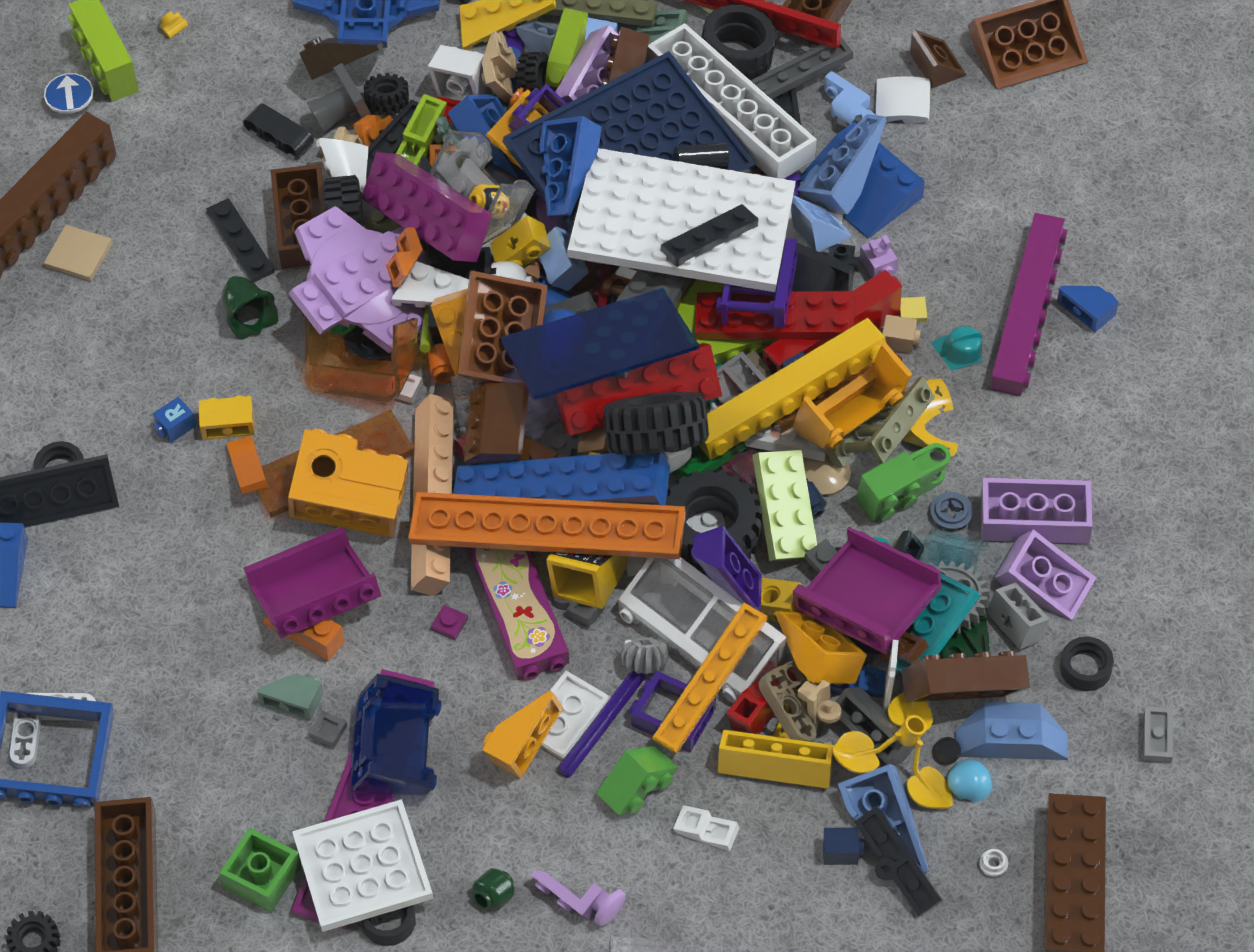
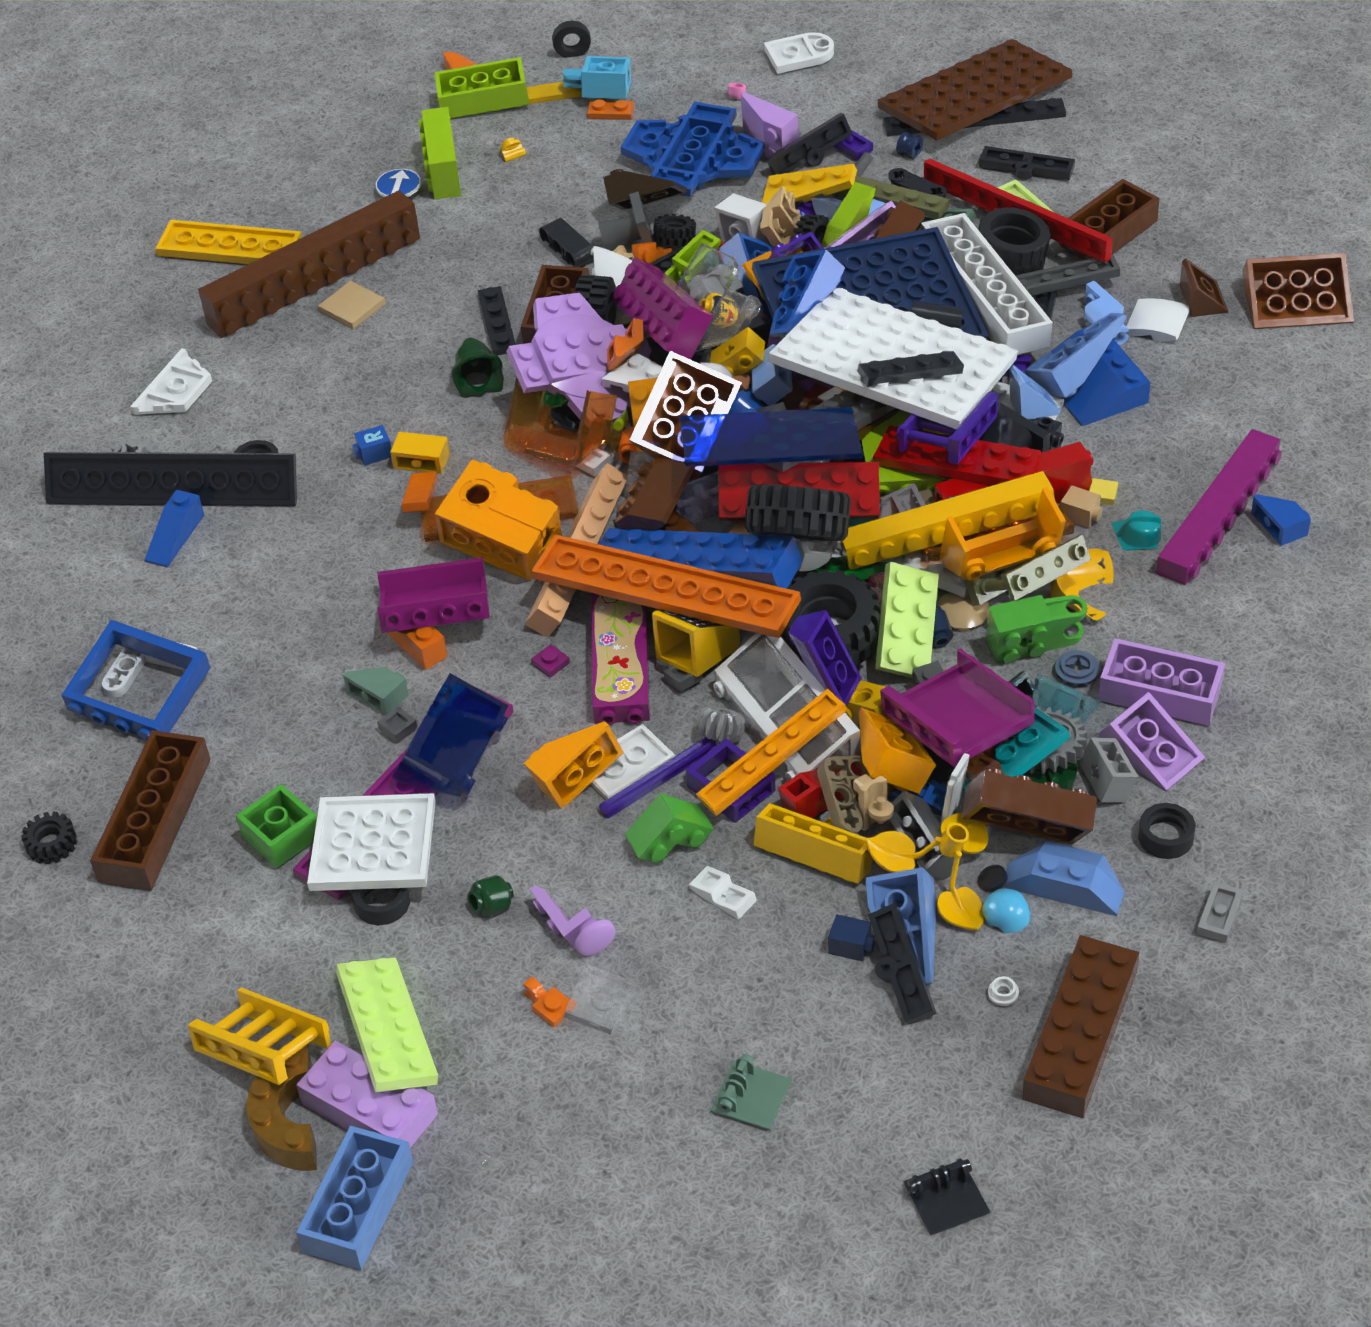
camera: 20 degrees right, 10 degrees down
(878, 256) = (1086, 434): lavender brick -> none

